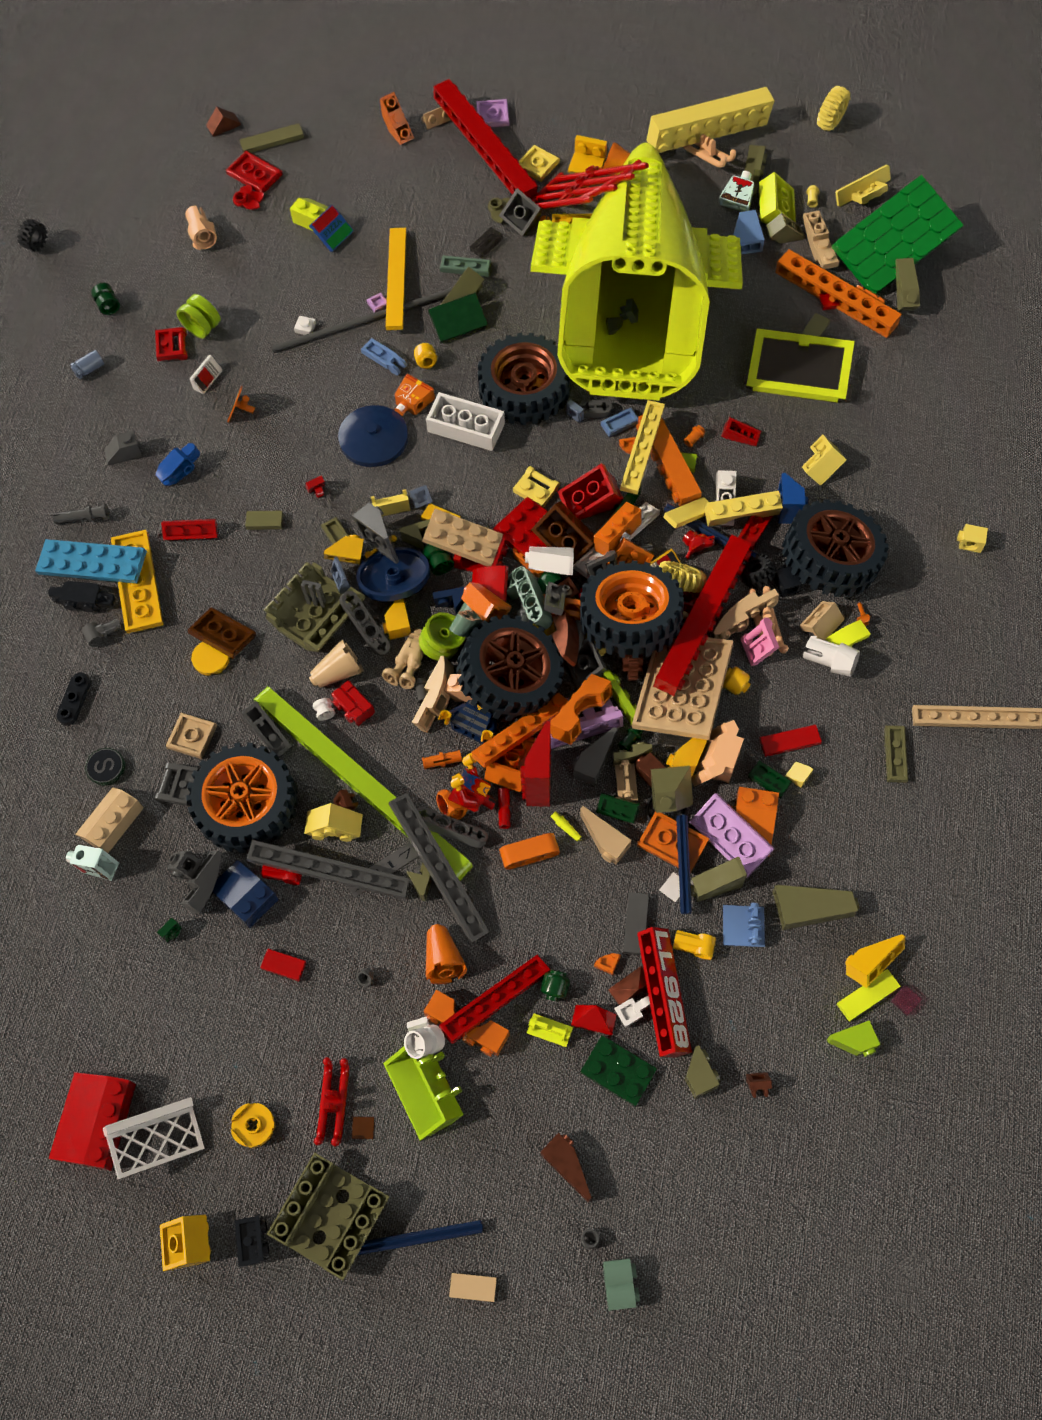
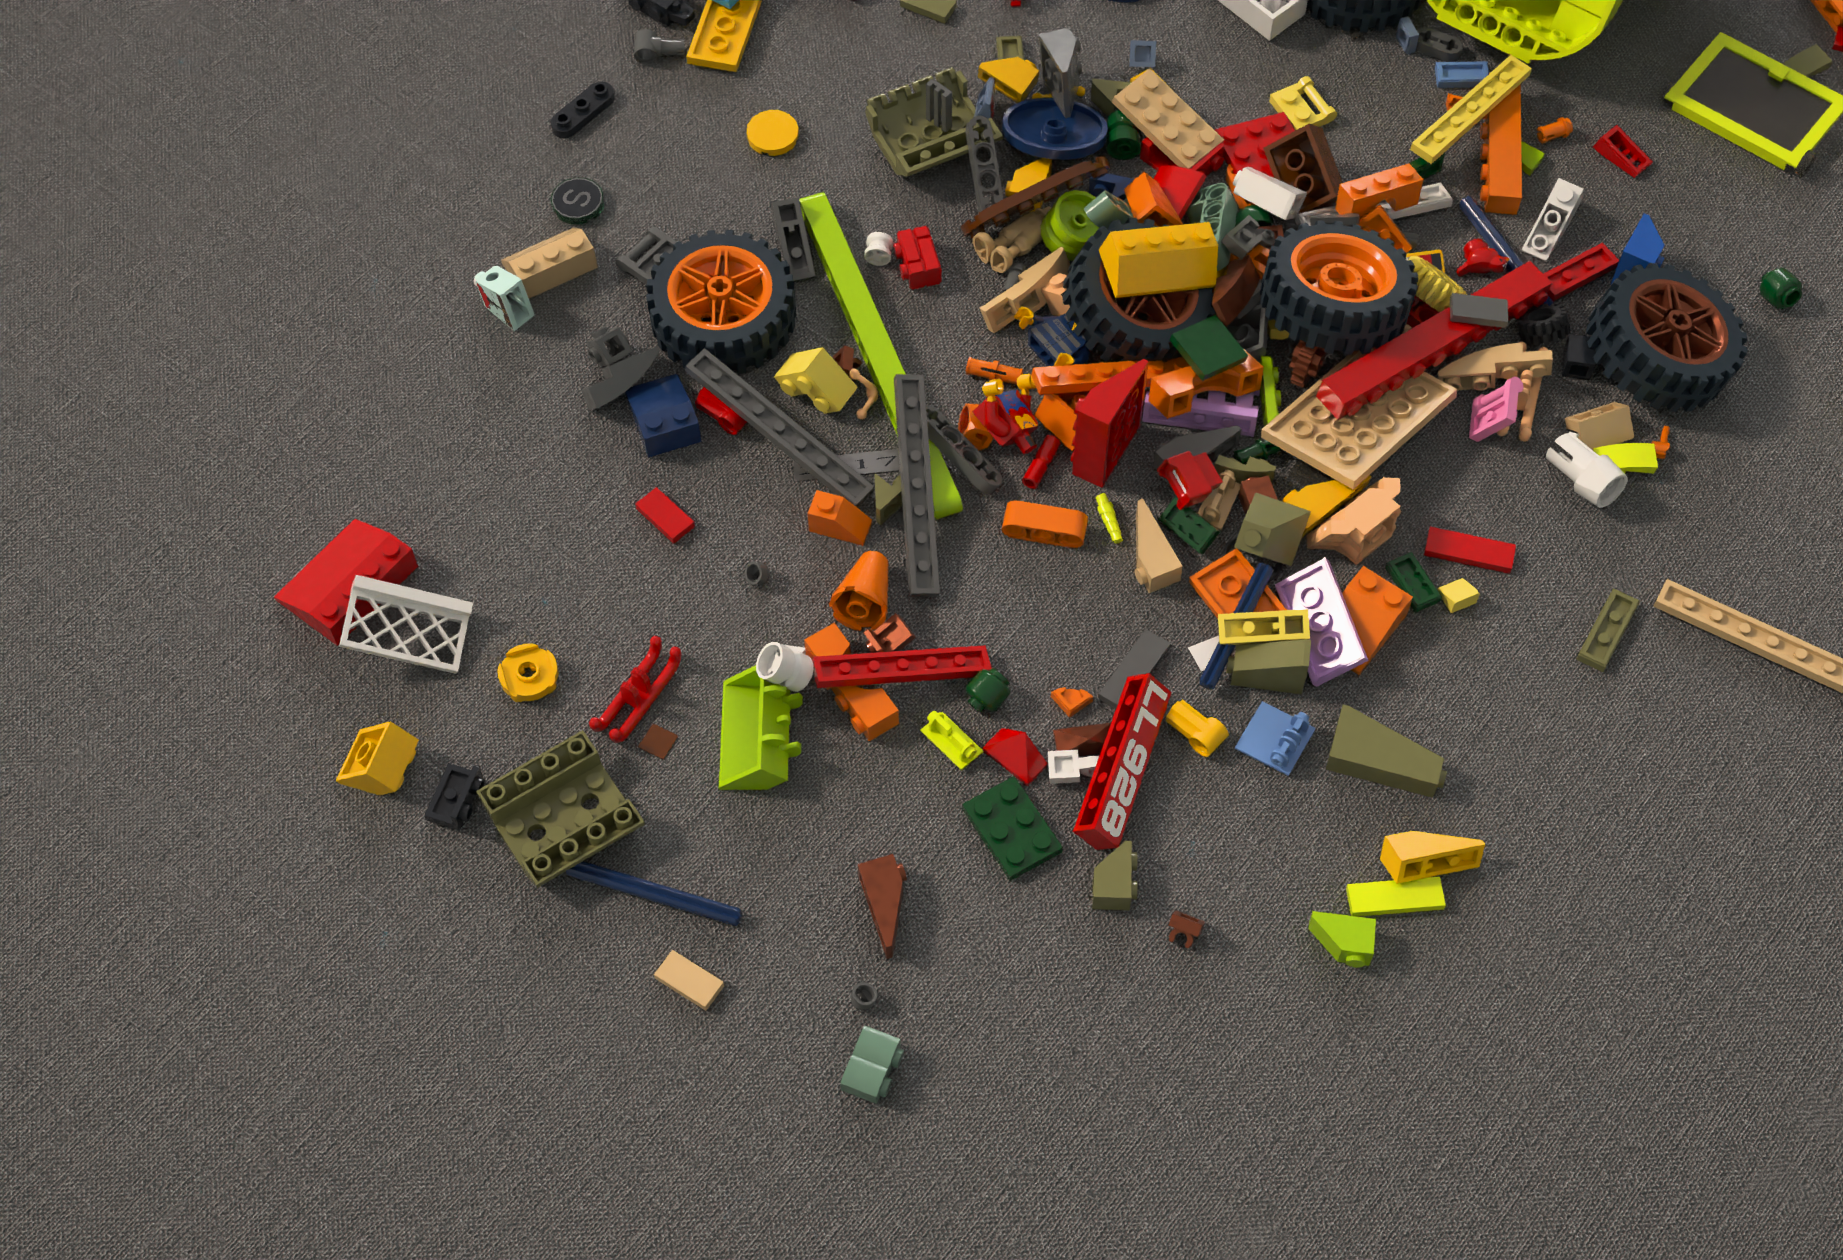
camera: 25 degrees right, 5 degrees down
(170, 930) = (551, 412): dark green plate -> none
(191, 735) = (700, 210): tan tile -> none
(222, 632) = (802, 109): reddish brown tile -> none
(336, 666) = (921, 204): tan cone -> none
(372, 812) = (871, 391): none -> light nougat piece
(392, 504) = (1101, 51): light yellow hinge -> none
(398, 912) = (838, 518): none -> orange slope
(404, 636) = (1045, 190): none -> reddish brown plate
(474, 979) = (890, 636): none -> copper bracket
(516, 643) = (1160, 259): none -> yellow slope
(573, 686) = (1208, 347): none -> dark green tile
(591, 493) = (1371, 138): red piece -> none
(606, 778) = (1190, 477): none -> red piece
(686, 513) = (1491, 217): light yellow tile -> none
(704, 859) = (1263, 627): none -> light yellow slope
(721, 583) = (1479, 310): none -> dark grey tile
(736, 680) = (1436, 444): yellow head -> none
(754, 505) = (1594, 243): light yellow arch -> none
(824, 461) = (1718, 232): light yellow panel -> none
(877, 482) = (1780, 288): none -> dark green head
(906, 1000) = (1444, 927): clear pink tile -> none

